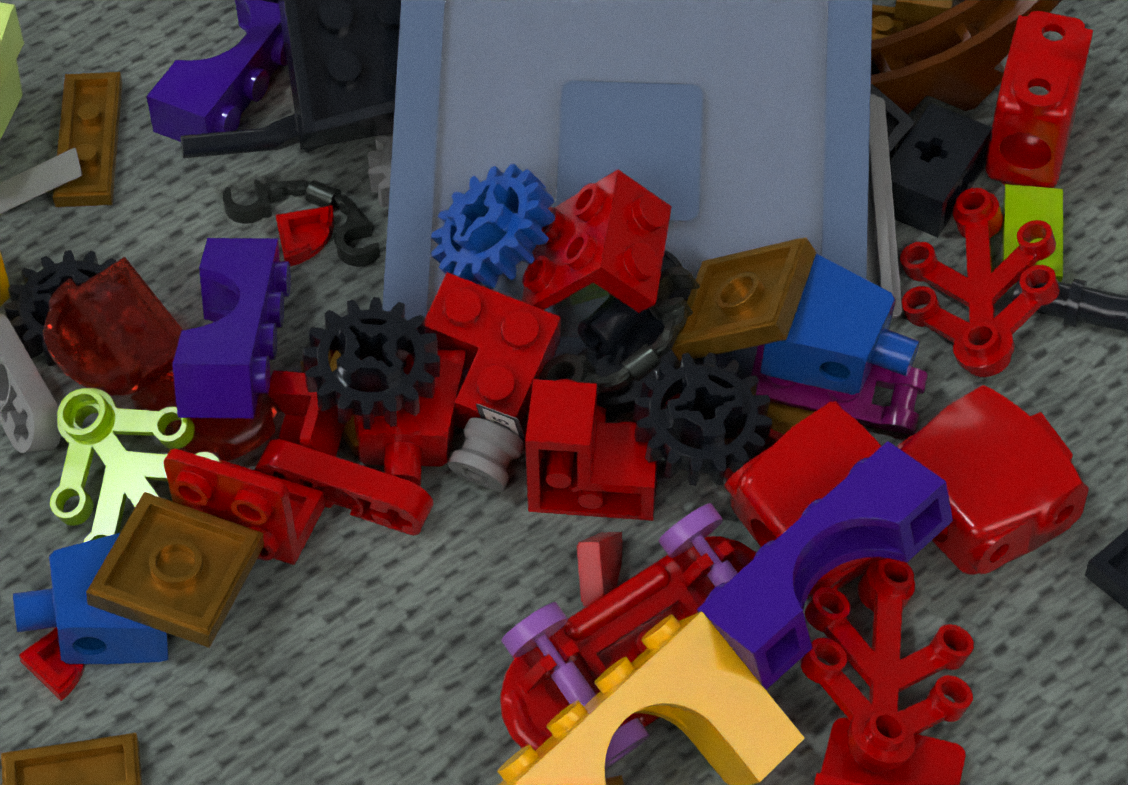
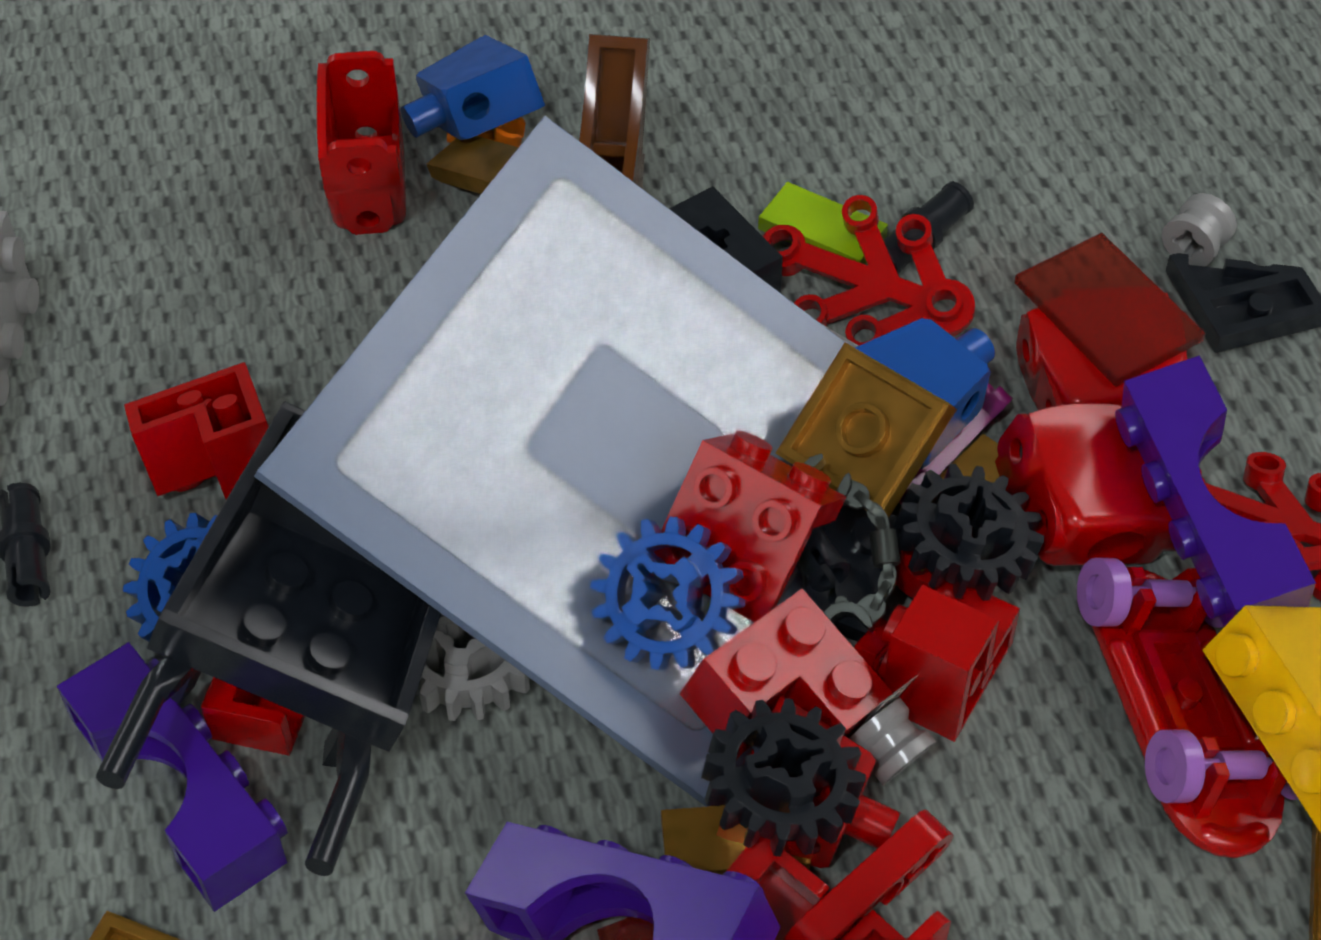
camera: 65 degrees left, 0 degrees up
(304, 232) = (472, 807): red tile -> none
(318, 193) = (429, 770): pearl dark grey piece -> none
(599, 565) = (1067, 697): red tile -> none
(1026, 441) = (1109, 309): none -> clear red piece
(1033, 129) = (726, 135): red piece -> none

